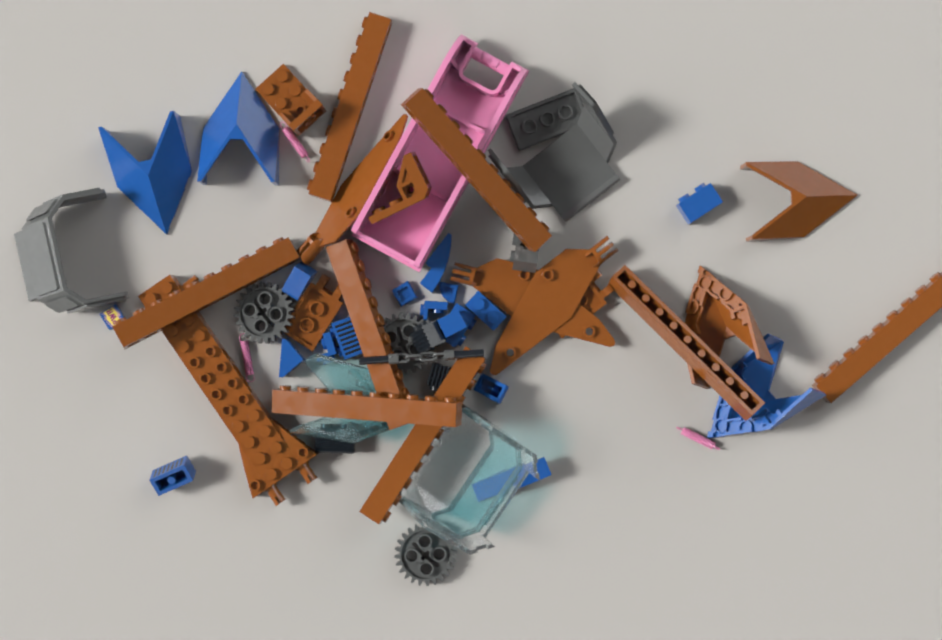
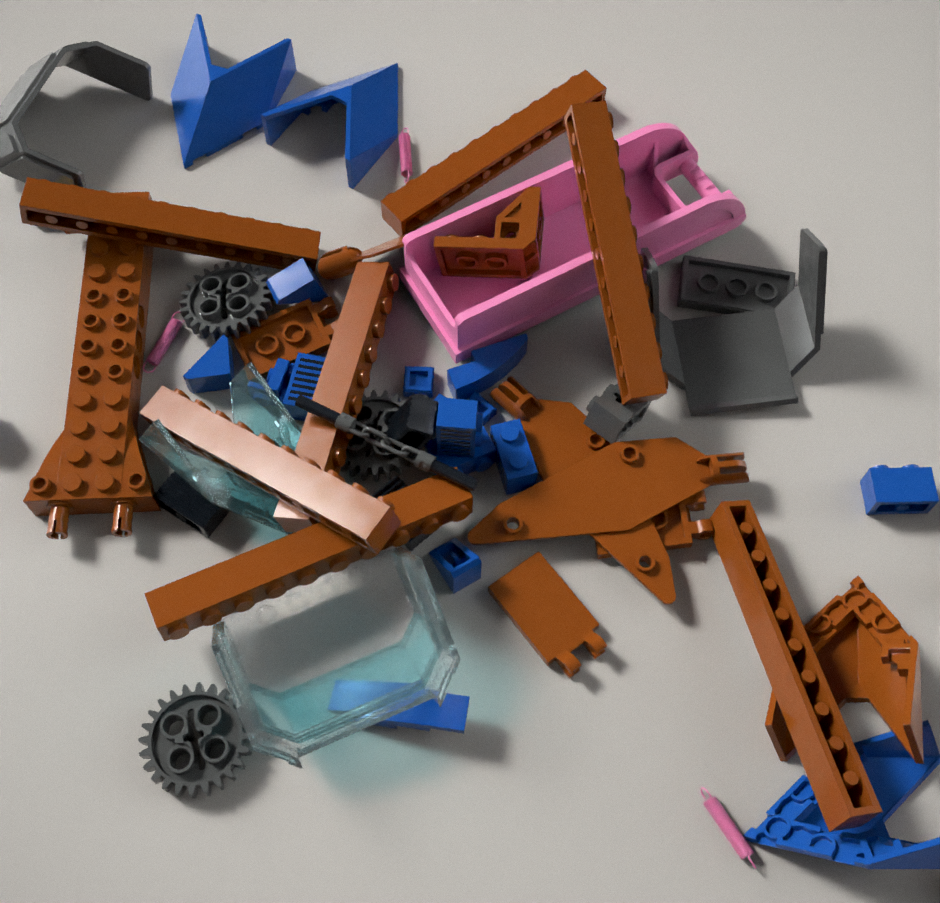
camera: 20 degrees right, 25 degrees down
(291, 100) = (433, 112): dark orange bracket -> none
(553, 385) = (547, 613): none -> dark orange tile

